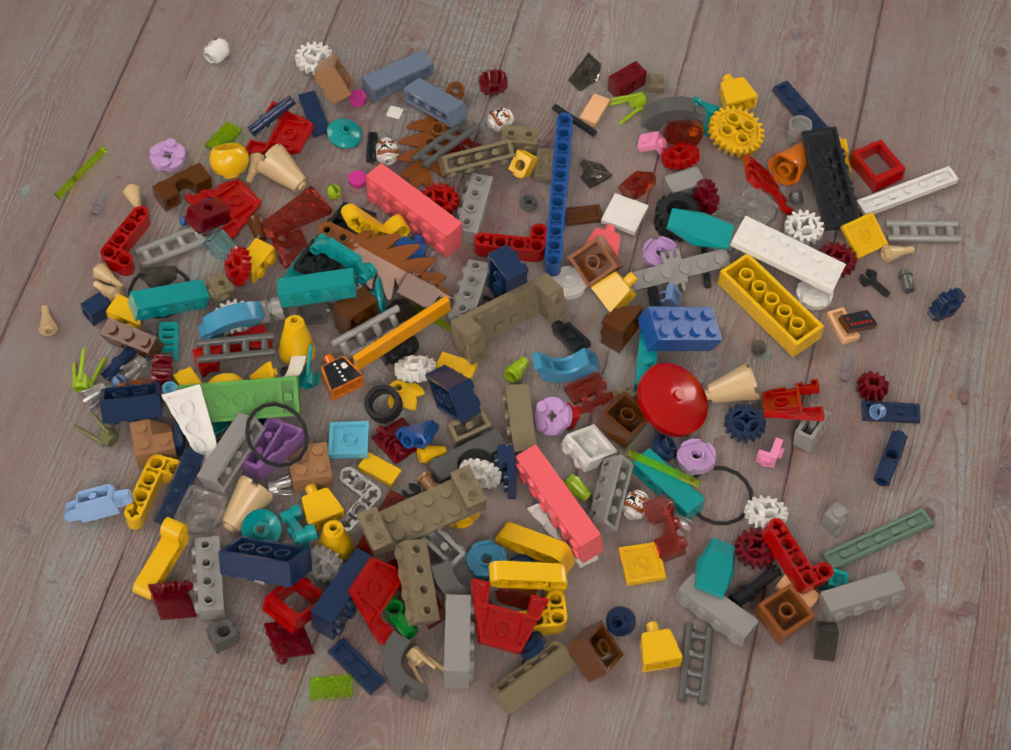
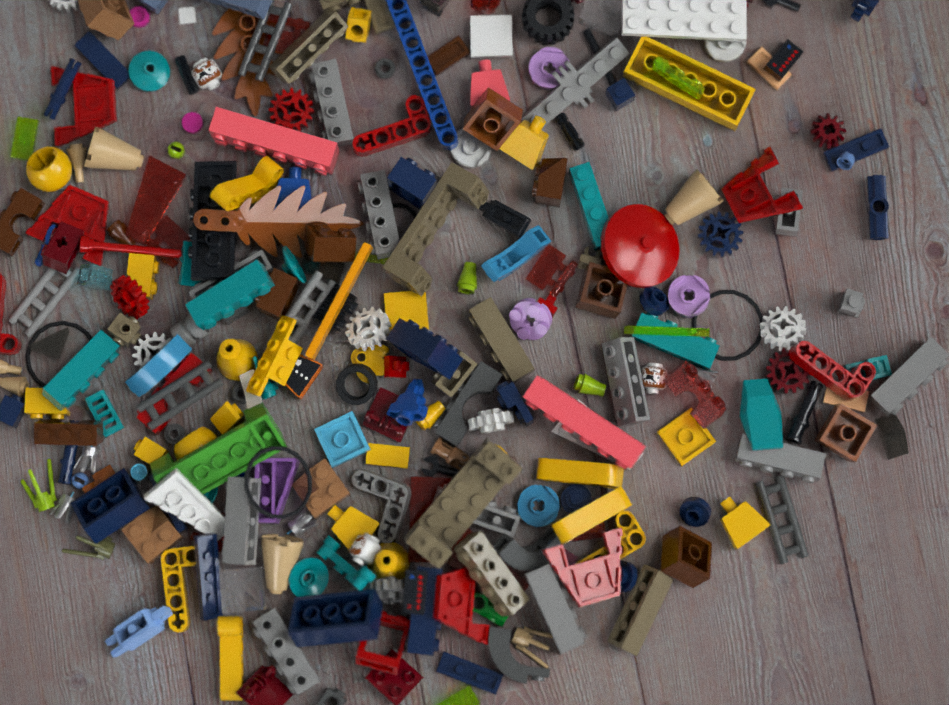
camera: 20 degrees left, 25 degrees up
(162, 368) = (118, 451): dark red gear -> none
(227, 219) = (88, 244): none -> red piece
(319, 517) = (364, 549): none -> white head
(330, 353) = (277, 358): none -> yellow bracket
(343, 564) = (415, 592): none -> black tile
(344, 256) = (245, 246): teal plate -> none
(422, 406) = (395, 367): none -> red tile
(587, 447) = (580, 336): white plate -> none
(671, 296) = (585, 117): medium blue tile -> none
(679, 328) = (613, 161): blue brick -> none
(700, 228) = (583, 29): teal piece -> none
(709, 291) = (620, 94): none -> dark blue brick
(754, 348) = (698, 141): dark grey hinge -> none
(762, 290) = (678, 78): none -> clear neon green hinge
(769, 459) = (764, 255): bright pink bracket -> none
(878, 539) = (898, 303): sand green tile -> none

